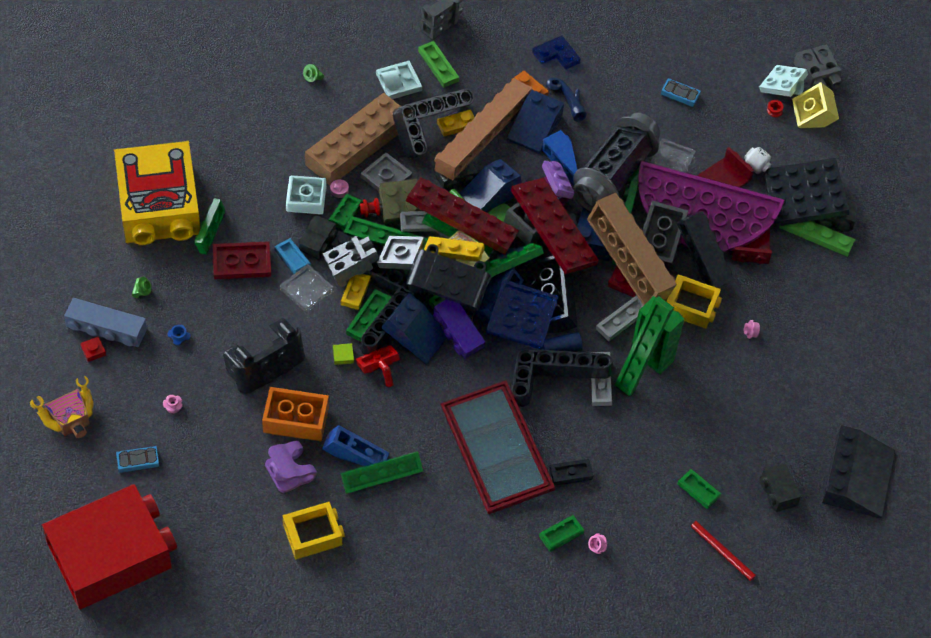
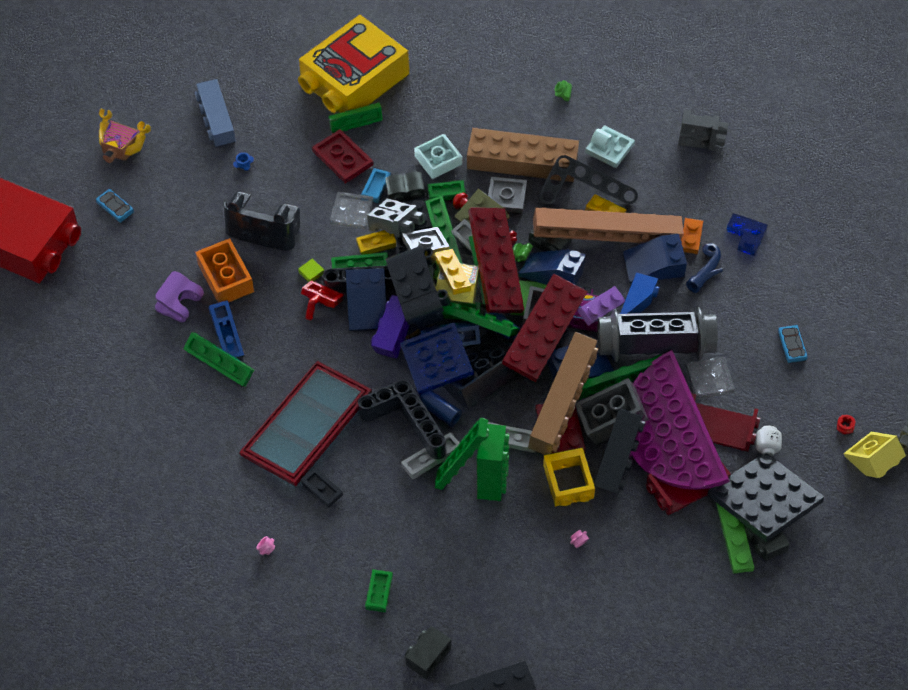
camera: 60 degrees right, 0 degrees up
(93, 349) = (189, 121): red plate -> none
(141, 287) = (266, 114): bright green plate -> none
(173, 408) = (179, 196): bright pink plate -> none
(317, 545) = (119, 335): yellow window -> none
(339, 188) = (467, 174): bright pink tile -> none
(438, 64) = (652, 161): bright green plate -> none
(561, 533) = (256, 514): green plate -> none
(723, 551) = (332, 645): red bar -> none
(784, 81) = (880, 409): light aqua plate -> none

